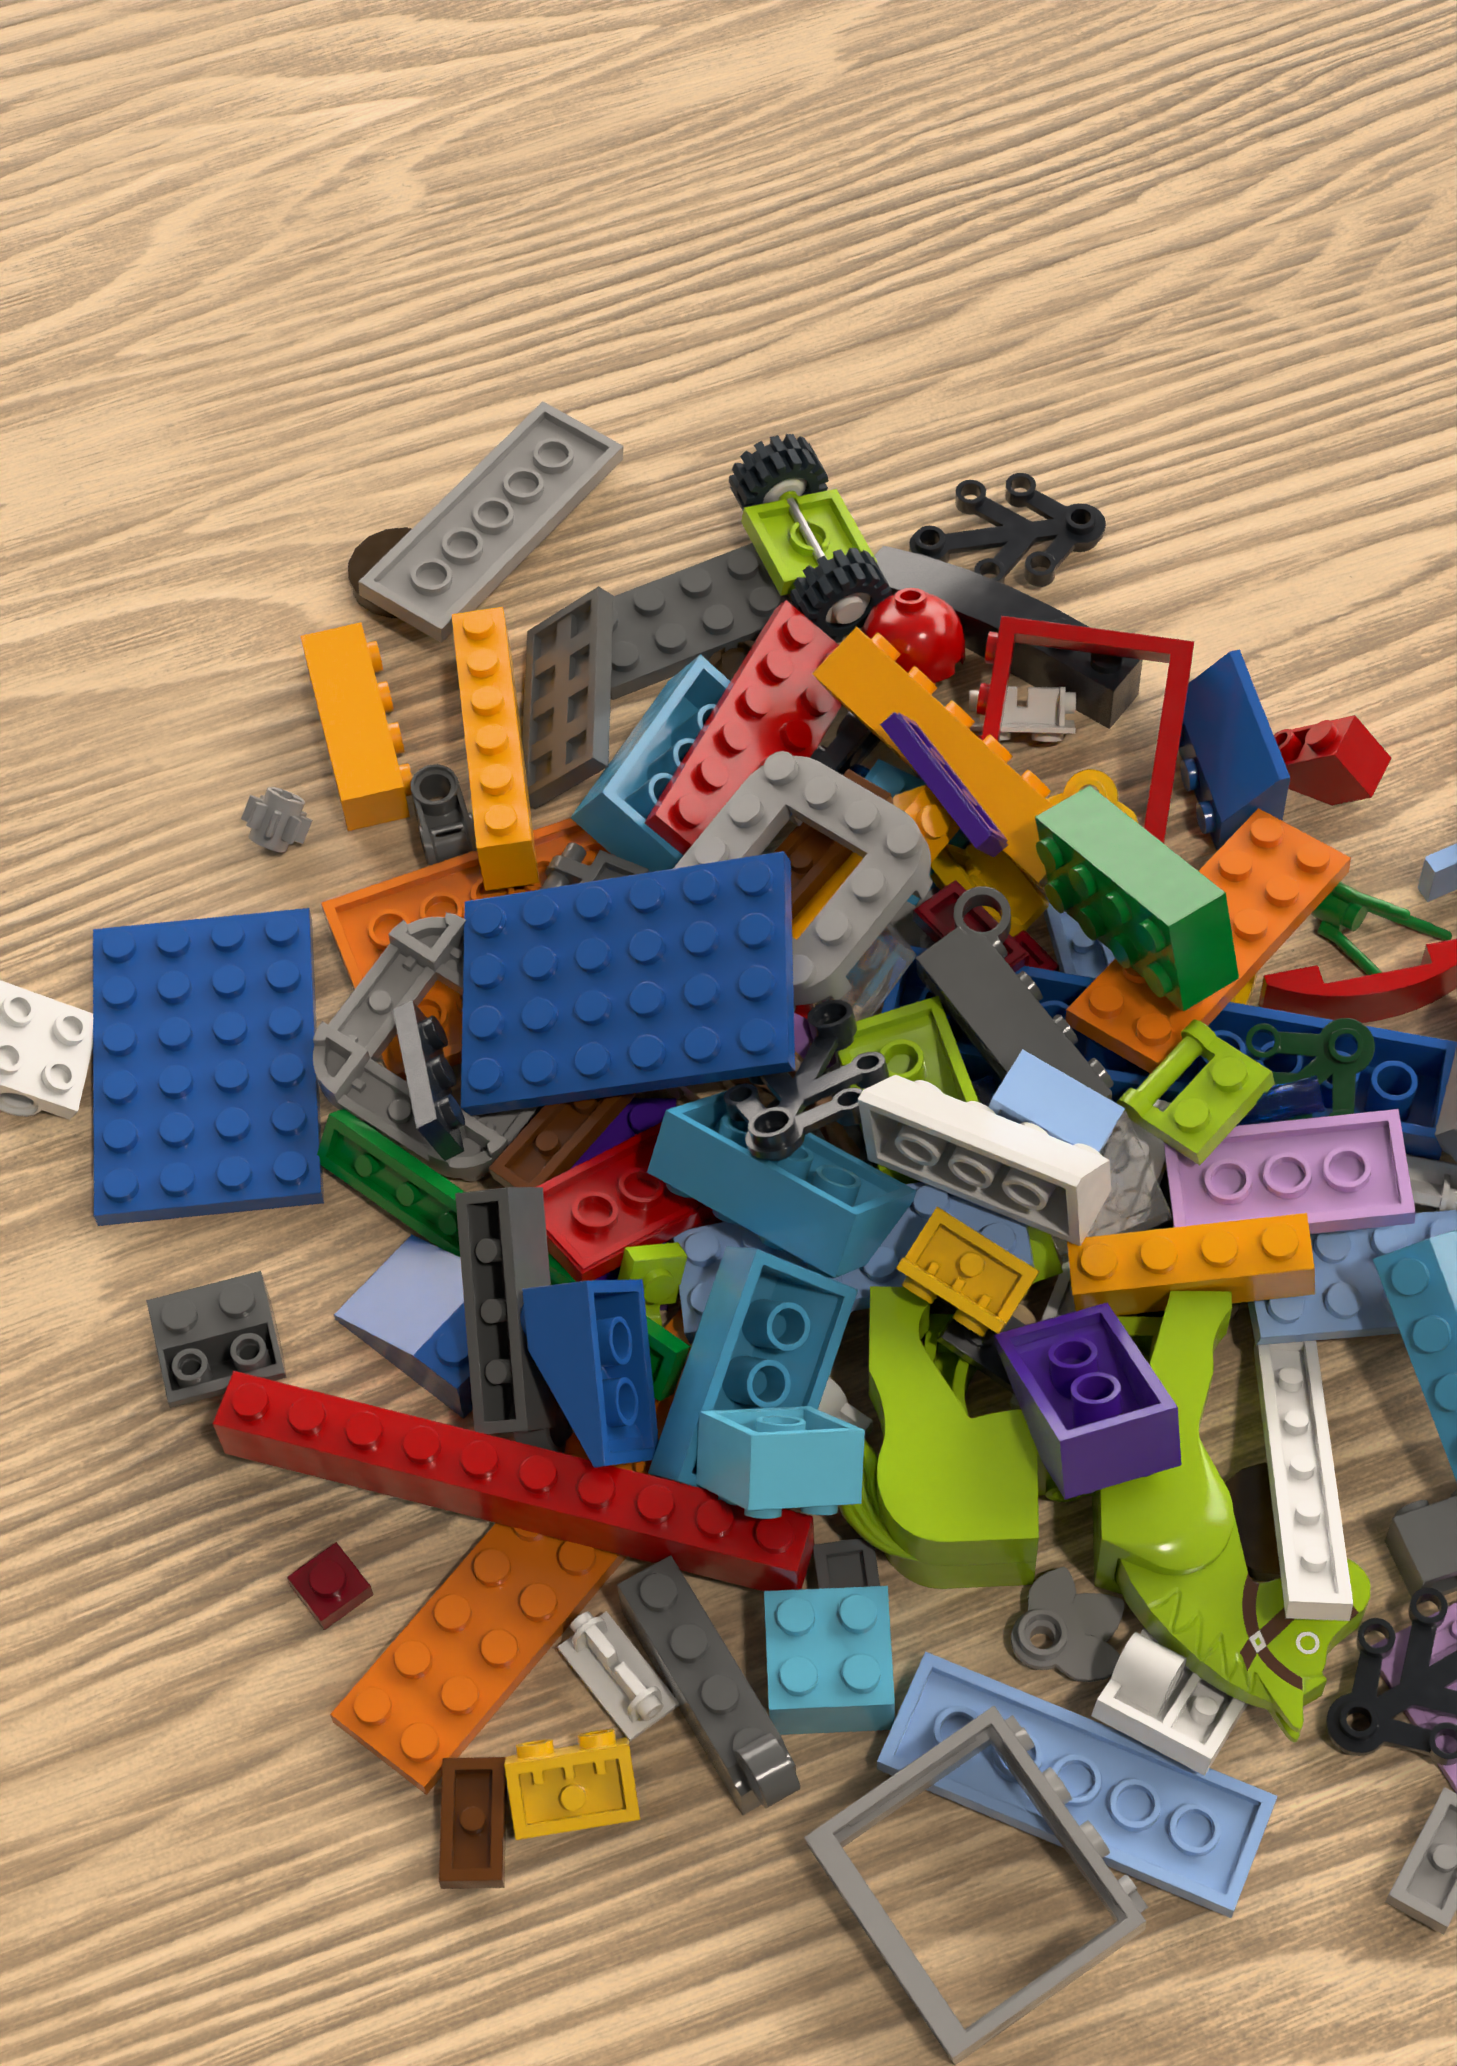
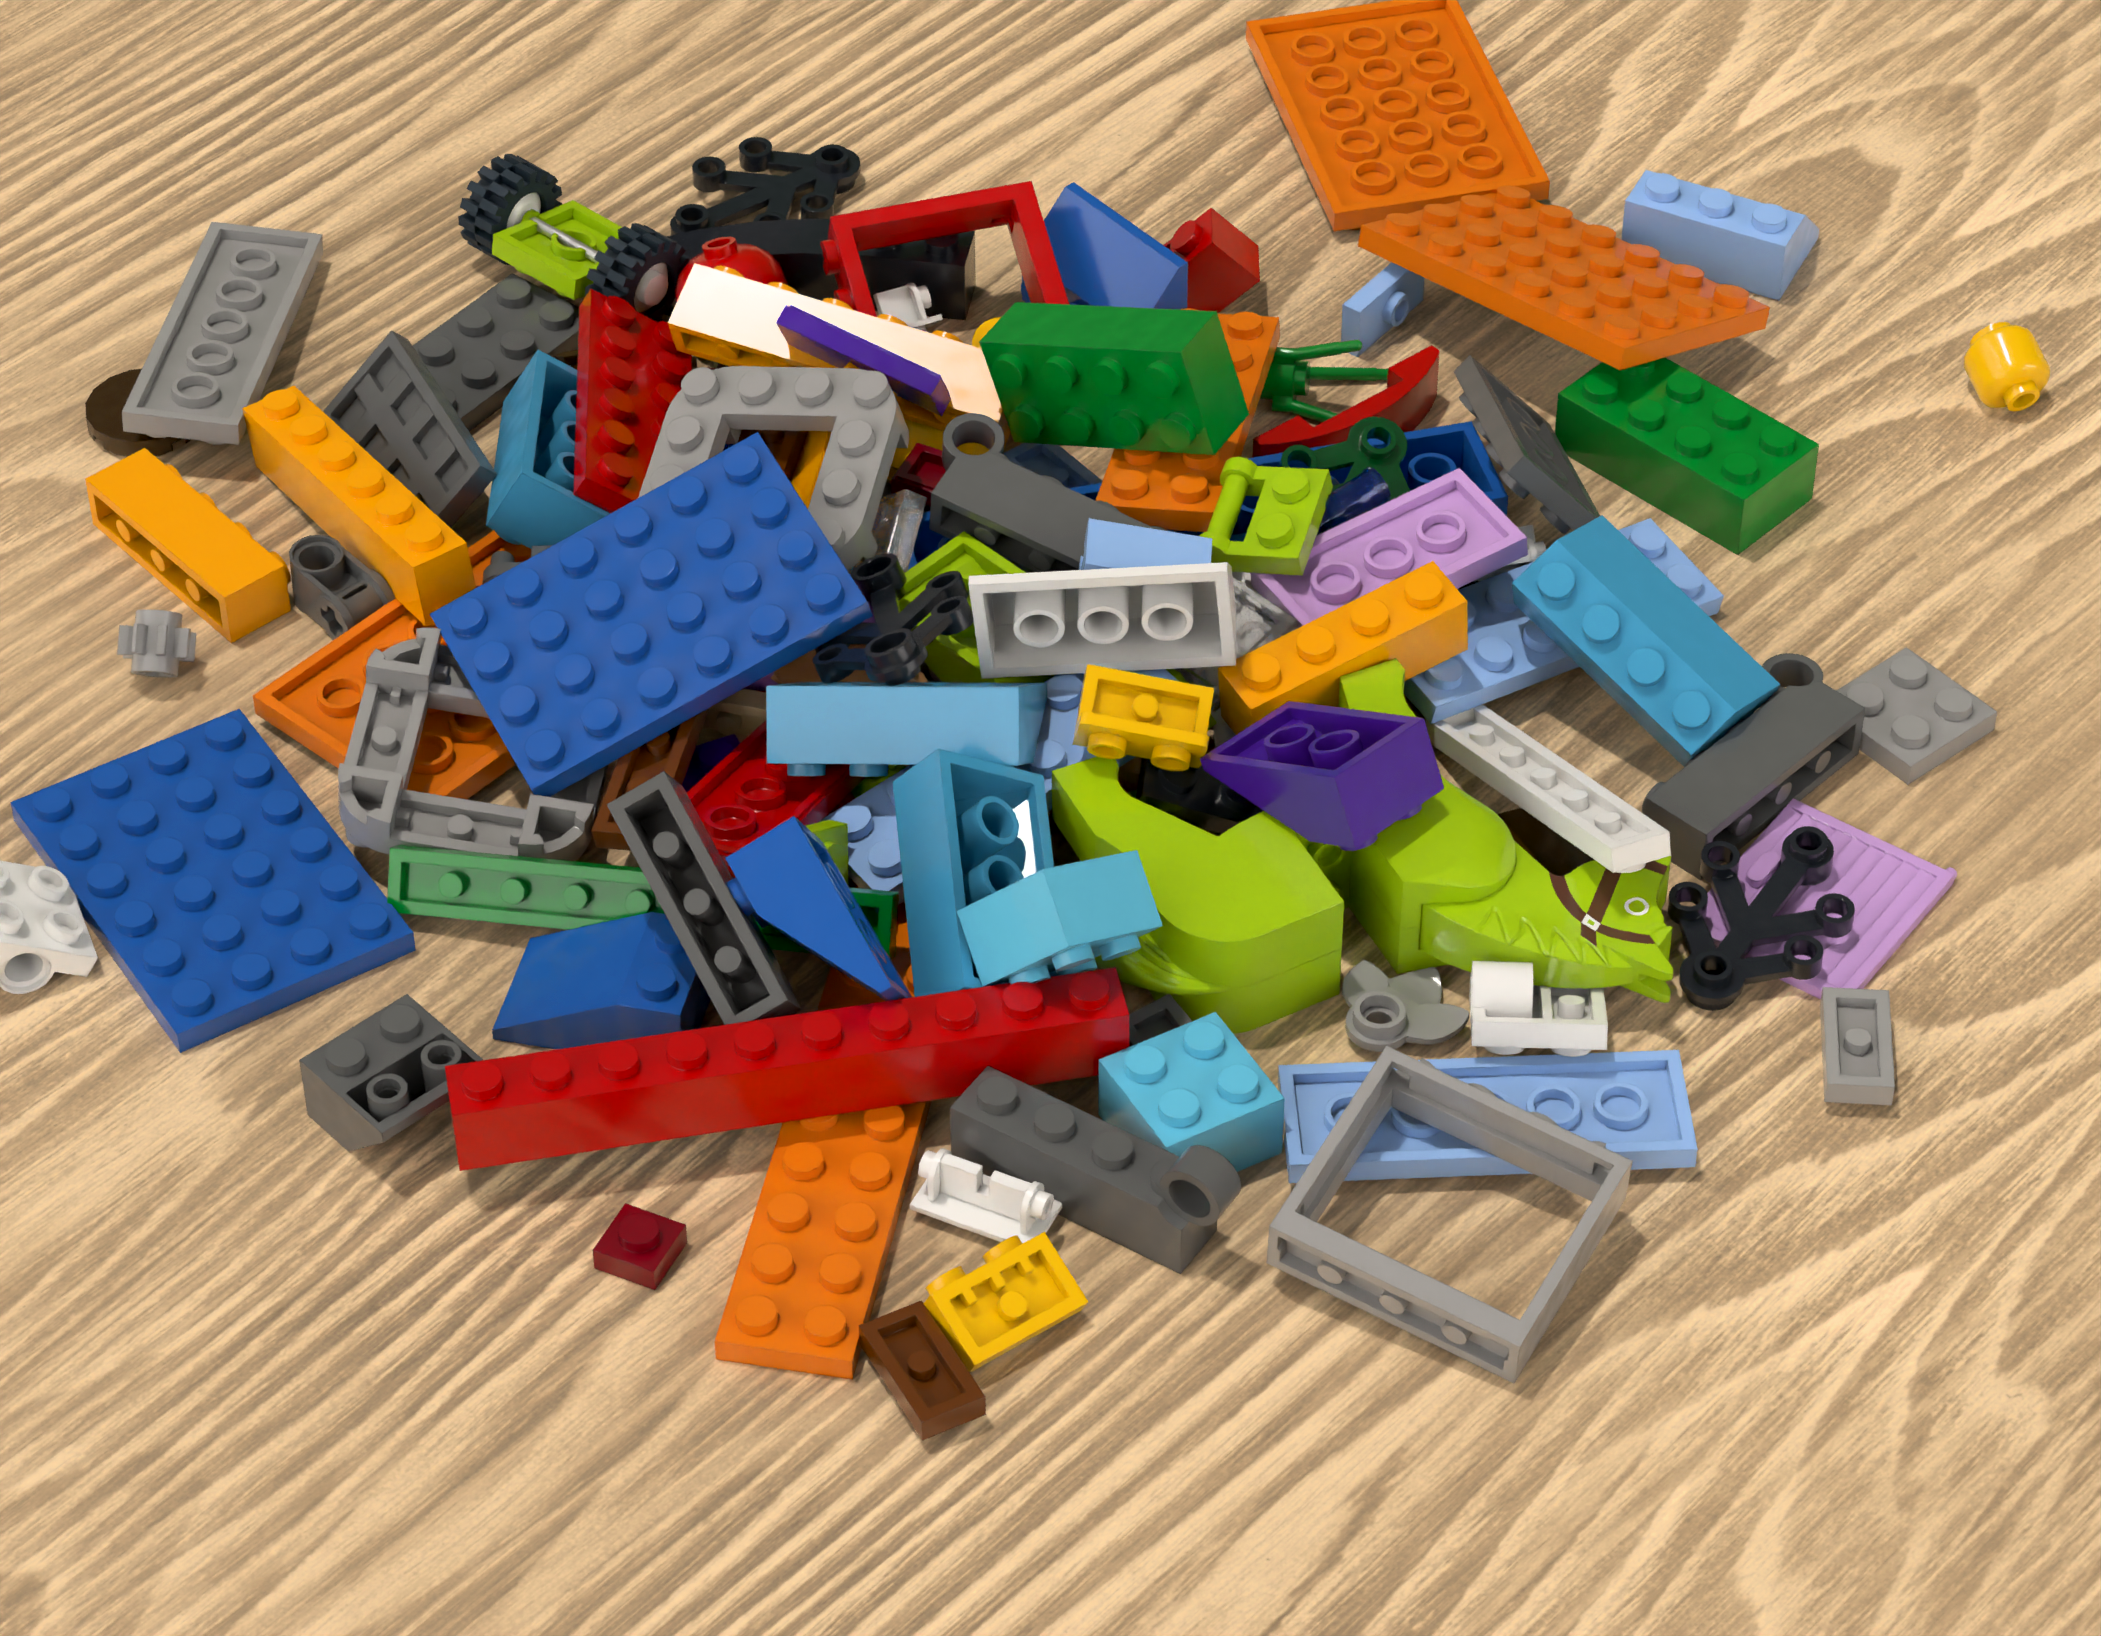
camera: 30 degrees left, 15 degrees down
(429, 1079) = (486, 774): black plate -> none

